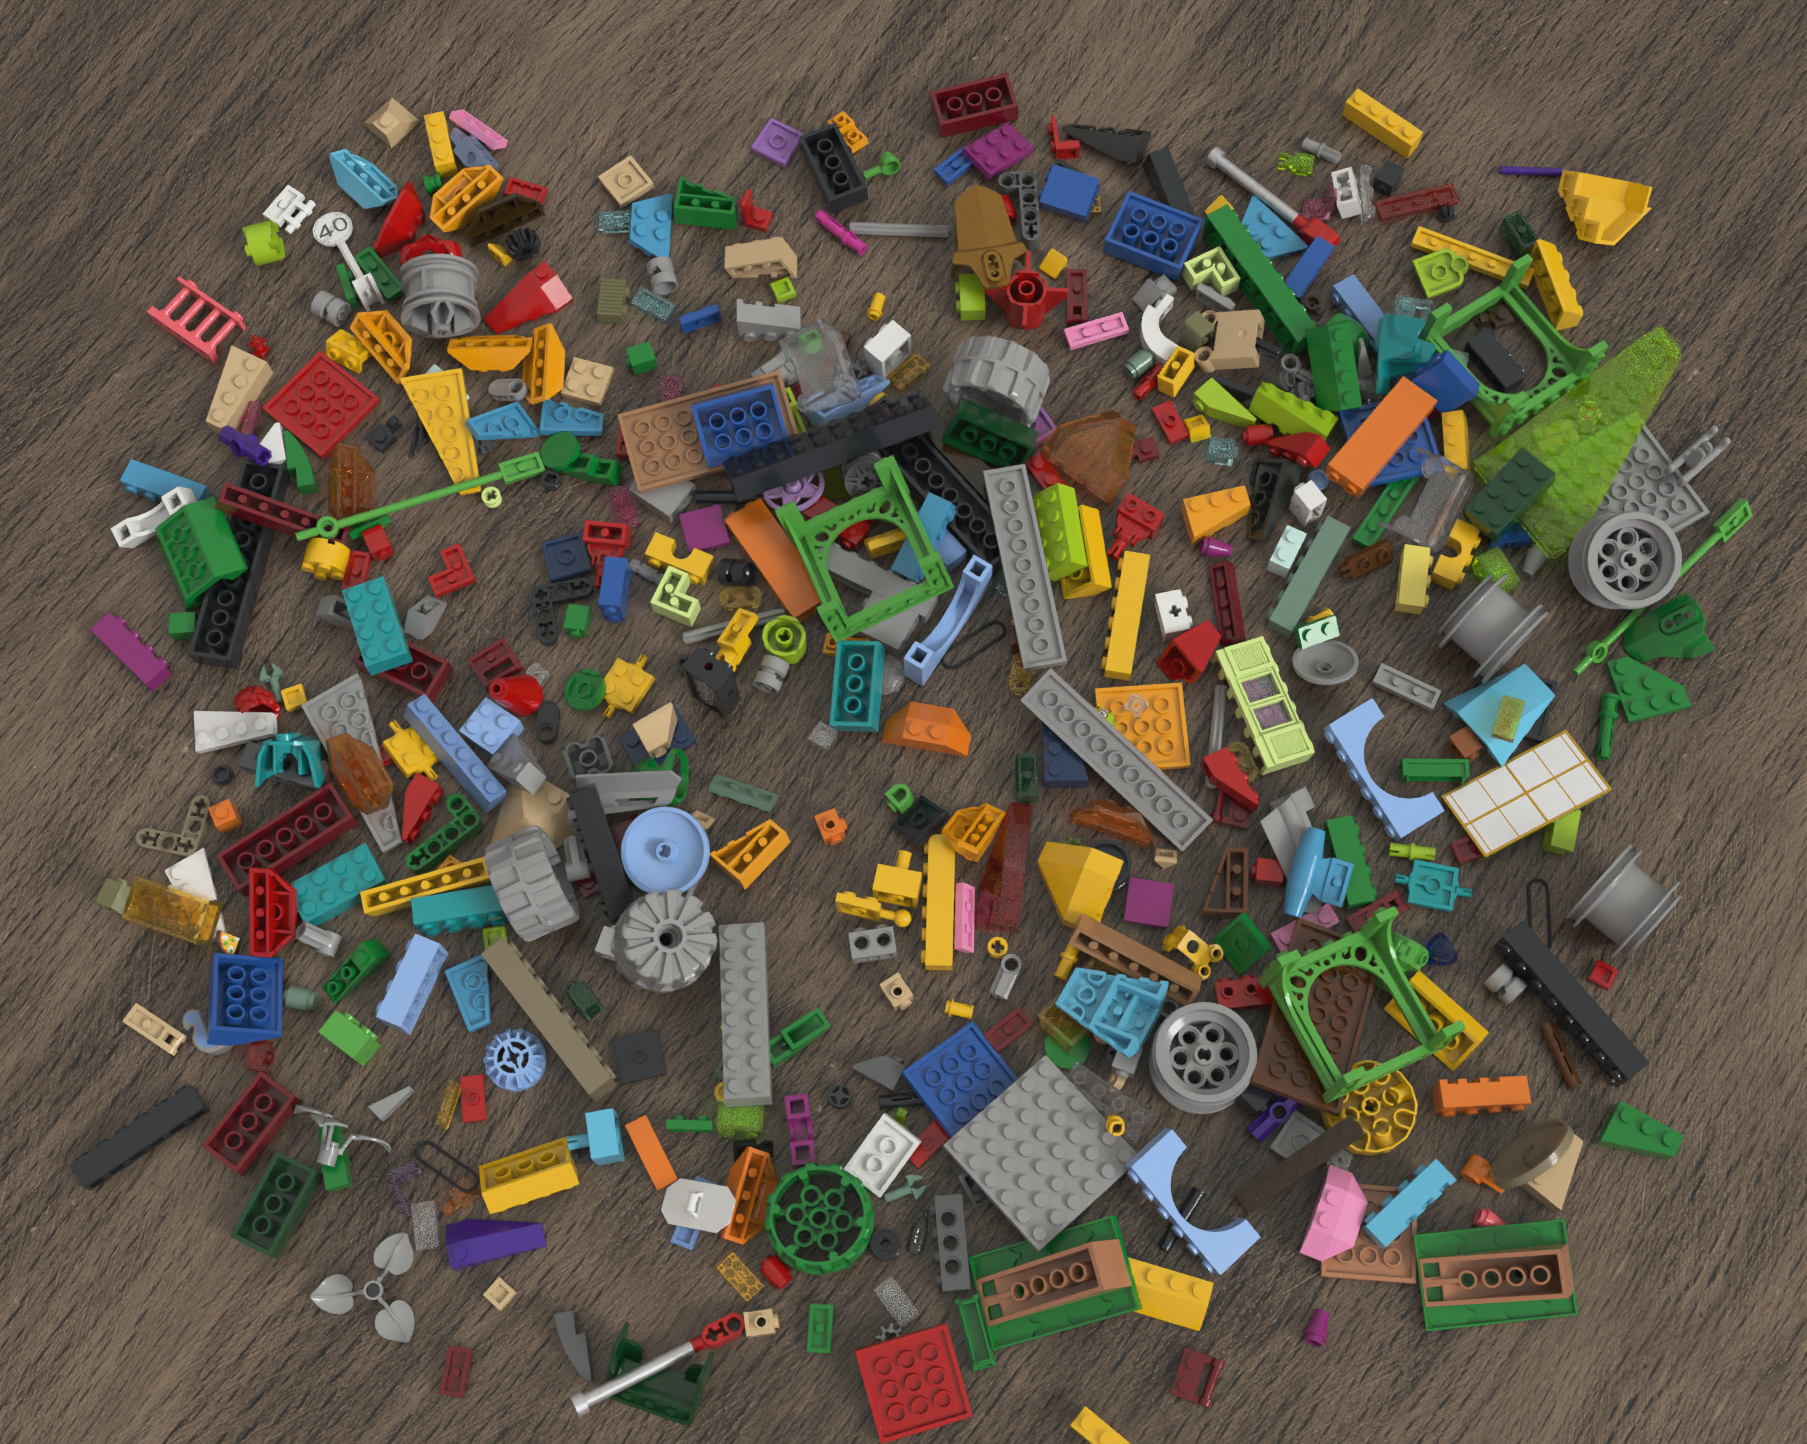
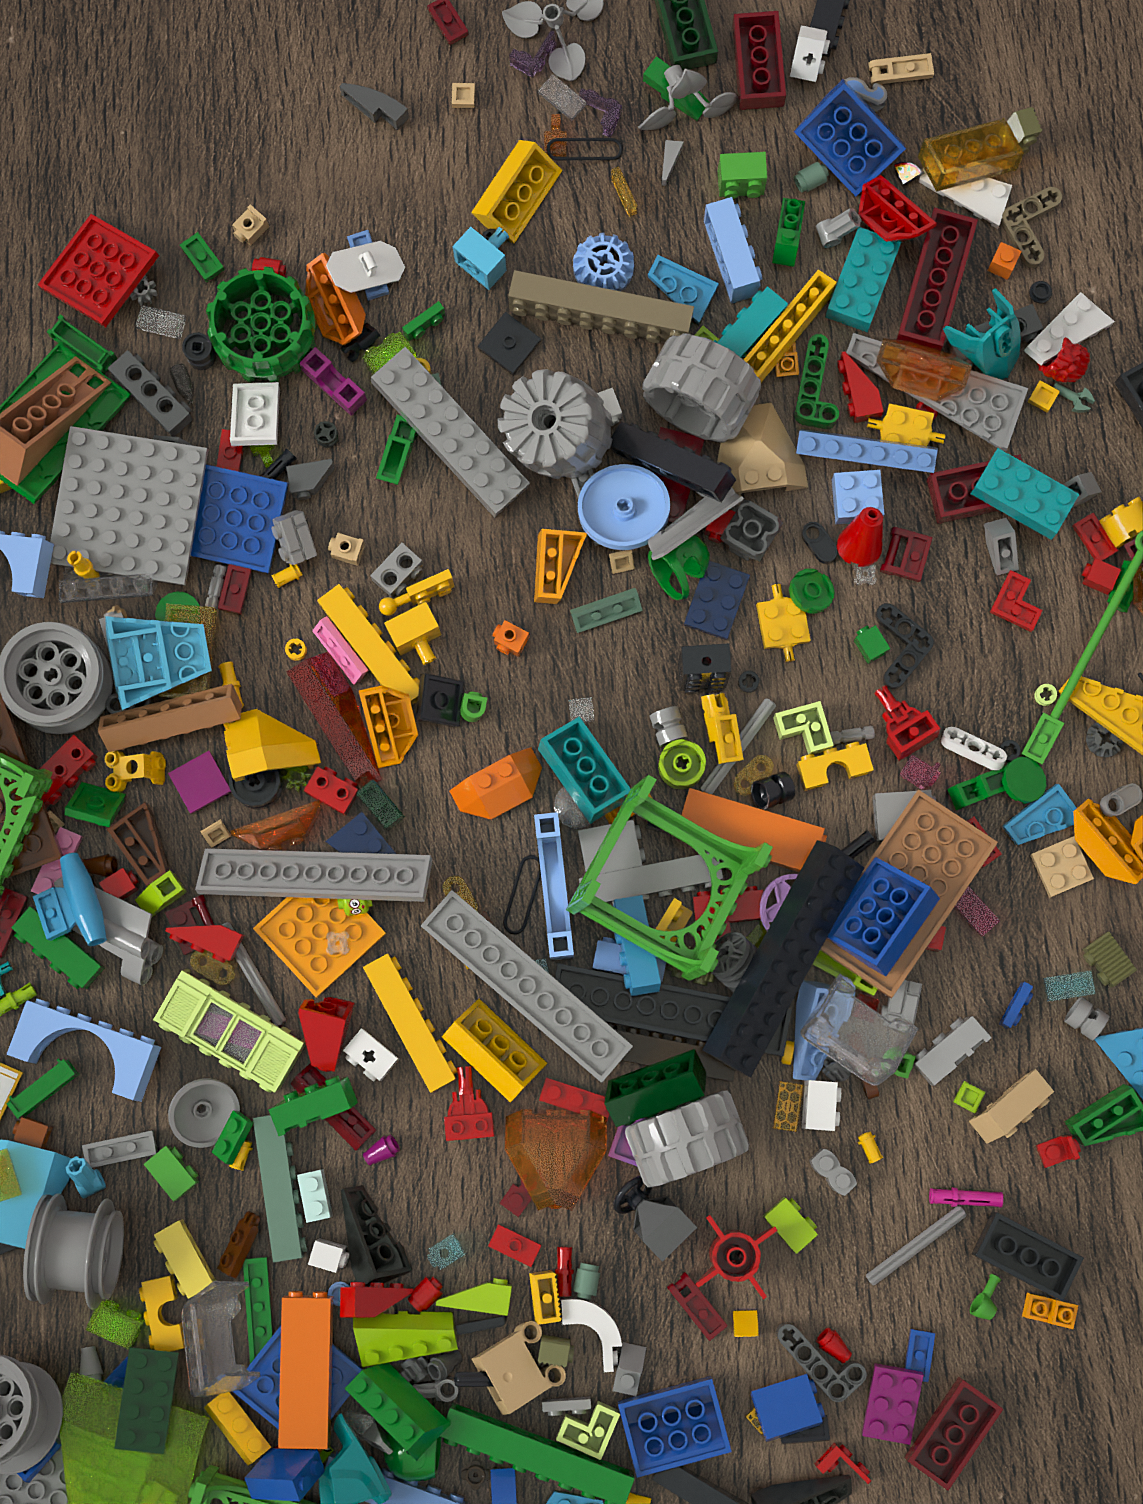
camera: 140 degrees right, 10 degrees up
(210, 1093) = (814, 42): none -> white brick
(259, 1056) = (798, 108): clear red brick -> none
(428, 1282) = (525, 63): none -> clear purple bracket
(473, 1098) = (610, 213): red plate -> none
(484, 1241) = (507, 121): dark purple wedge -> none
(503, 423) = (1094, 763): dark azure wing -> none
(517, 766) = (805, 478): light grey wedge -> none
(566, 491) = (977, 756): none -> white beam
(566, 557) = (932, 691): dark blue plate -> none
(576, 859) = (687, 437): light grey piece -> none
(583, 1401) = (330, 63): flat silver piece -> none
(584, 999) = (586, 344): clear green brick -> none
(615, 589) = (861, 691): blue brick -> none
(641, 358) = (1033, 924): green brick -> none
(651, 1152) = (437, 279): orange slope -> none
(657, 730) = (714, 594): tan slope -> none
(664, 1394) = (293, 125): dark green windscreen -> none
(704, 529) = (837, 811): magenta tile -> none
(739, 1276) = (294, 247): clear yellow tile -> none
(777, 142) = (1105, 1246): medium lavender tile -> none
(906, 1189) = (218, 408): sand green bar -> none
(914, 308) = (828, 1166): none -> light grey brick
(931, 1028) = (293, 537): none -> light grey brick
(985, 235) = (817, 1283): pearl gold piece -> none
(1005, 979) = (268, 628): light grey piece -> none
(1021, 1044) = (216, 586): none -> light grey axle
(1053, 818) = (331, 790): none -> red brick
(1060, 530) = (525, 1049): lime brick -> none
(1062, 353) = (656, 1219): none -> dark grey piece
(1096, 331) = (651, 1286): bright pink plate -> none
(1198, 428) = (487, 1260): yellow slope -> none
(1213, 511) = (407, 1182): light orange wedge -> none
(1241, 605) = (313, 1104): none -> green wedge
(1241, 837) = (161, 893): none -> lime slope
(1271, 899) = (101, 865): none -> reddish brown cone
(1379, 642) = (172, 1172): none -> bright green brick
(1446, 682) = (85, 1178): none -> medium azure piece

